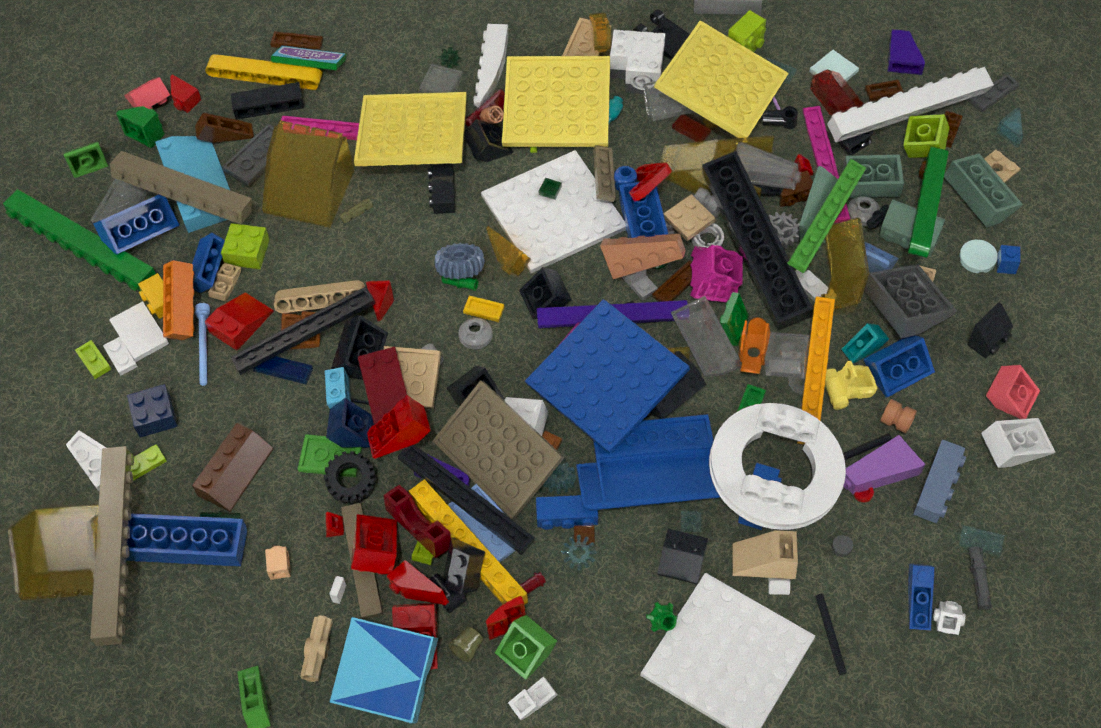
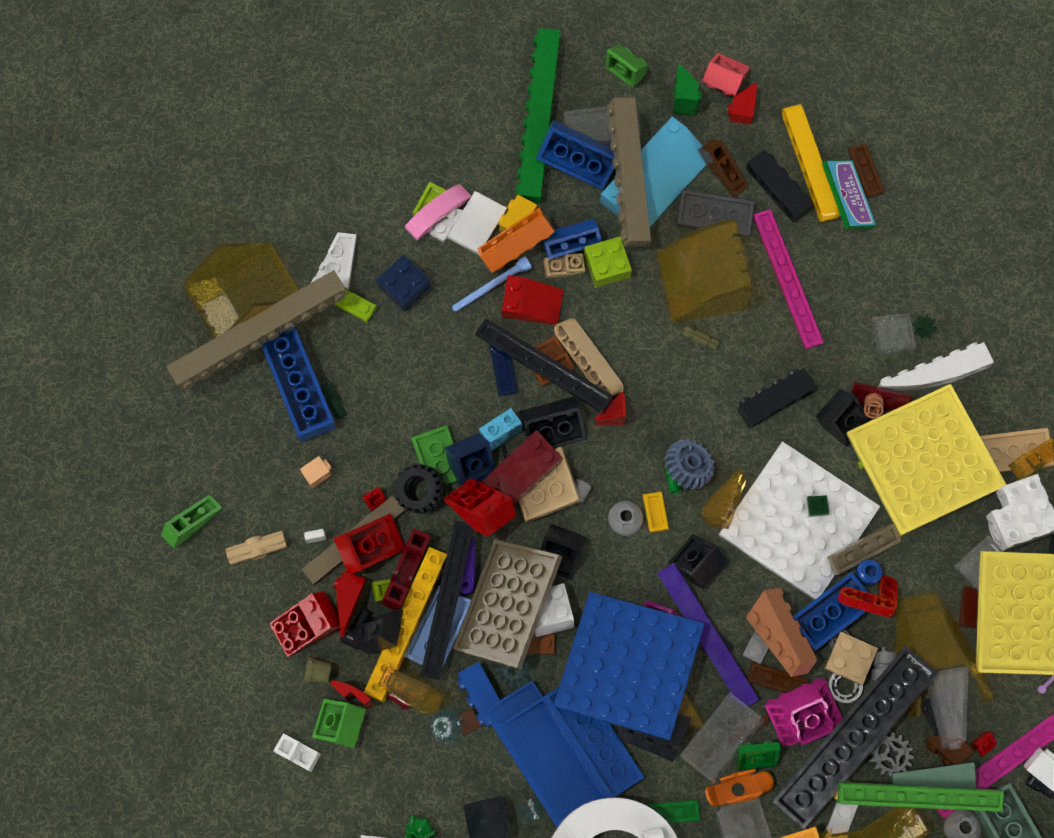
camera: 60 degrees right, 15 degrees up
(105, 356) = (436, 210): none -> bright pink slope
(232, 467) = (384, 383): reddish brown slope -> none
(383, 670) = (257, 616): tile -> none
(411, 129) = (814, 339): light yellow plate -> none
(534, 562) = (411, 691): none -> clear yellow slope
(615, 108) = (951, 520): teal plant -> none
(786, 117) = (1030, 690): black piece -> none

